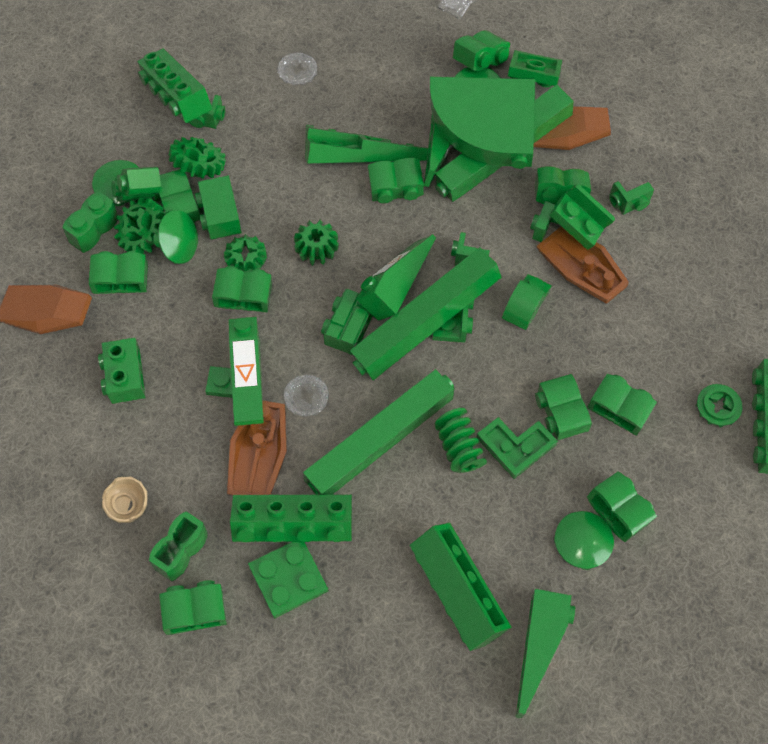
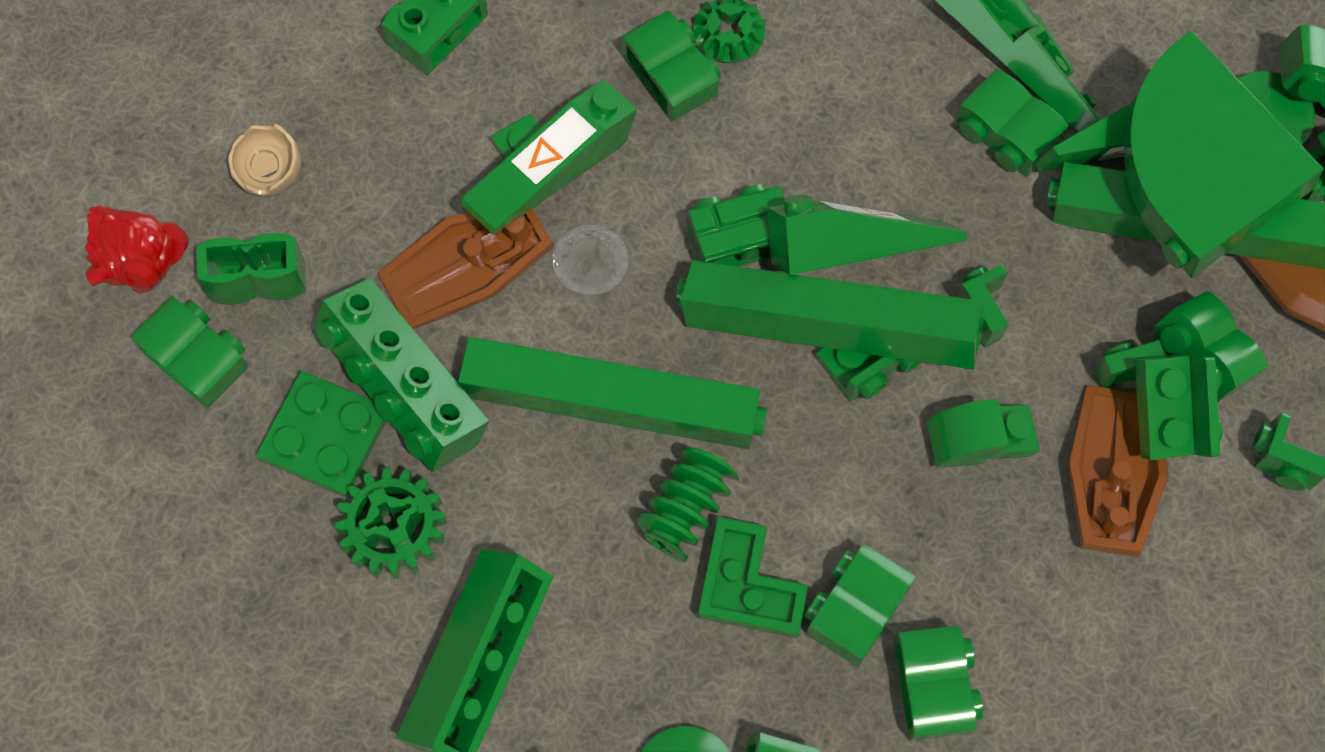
camera: 50 degrees right, 5 degrees up
(116, 595) = (131, 248): none -> red hair
(309, 249) = (831, 111): green gear -> none
(349, 576) = (373, 531): none -> green gear

